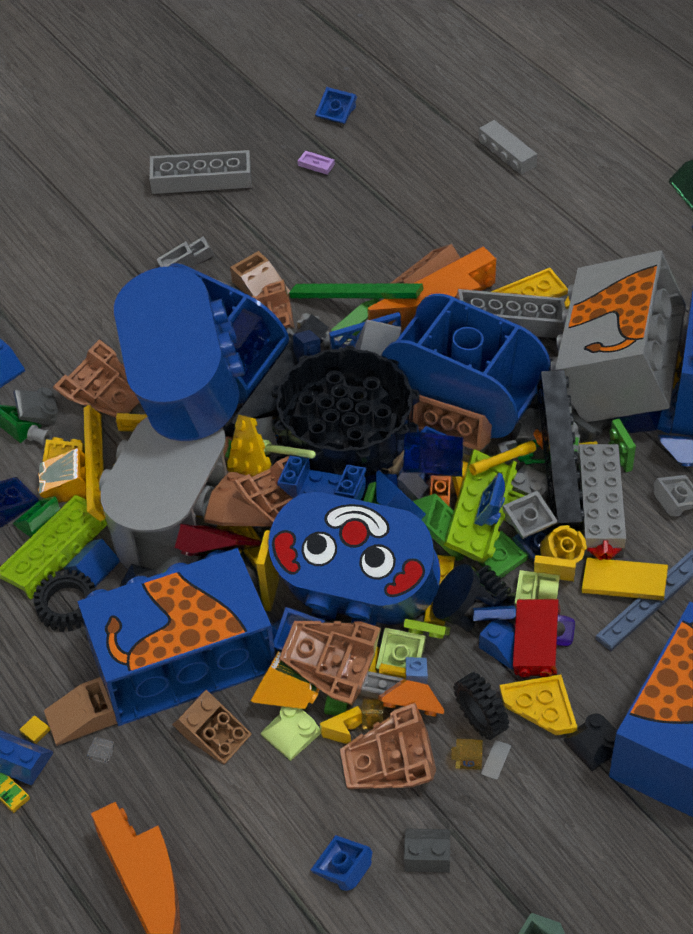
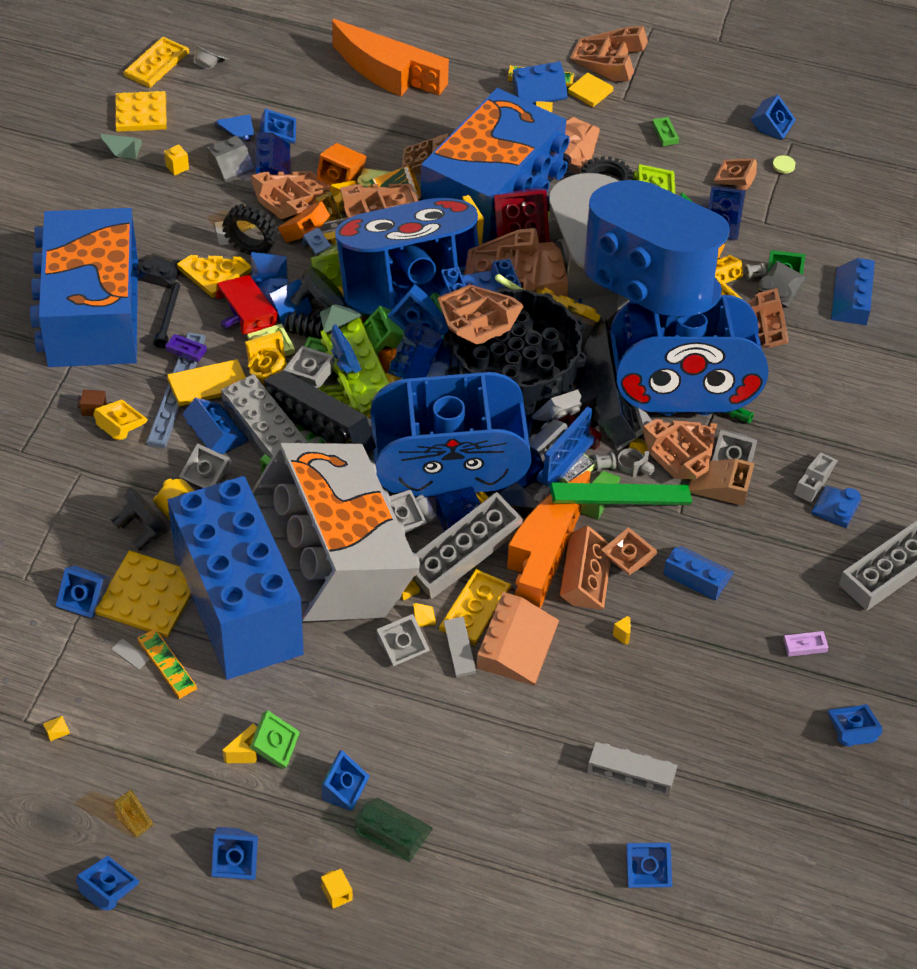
camera: 140 degrees right, 0 degrees up
(52, 669) = (582, 143): none -> nougat wedge
(191, 229) = (837, 505): none -> blue slope
(306, 344) = (594, 384): dark blue slope -> none
(316, 756) = (340, 165): none -> orange slope
(341, 235) = (697, 572): none -> blue slope
(366, 423) = (479, 313): none -> nougat wedge
(382, 265) = (629, 551): none -> nougat slope
(382, 821) = (272, 154): none -> clear blue slope
(389, 897) = (236, 126): none -> blue slope
(434, 224) = (622, 630): none -> yellow slope
(458, 552) = (338, 315): none -> sand green slope
(486, 464) = (373, 381): yellow piece -> none
(489, 661) = (268, 266): none -> blue slope
(490, 879) = (176, 160): none -> yellow brick
(524, 254) = (517, 640): none -> slope
(543, 98) = (649, 865): none -> blue slope
(565, 266) = (459, 647): none -> light grey tile
(627, 618) = (186, 348): none -> dark purple plate
(642, 653) = (161, 337): none -> black piece
(646, 531) = (213, 426): none -> blue slope

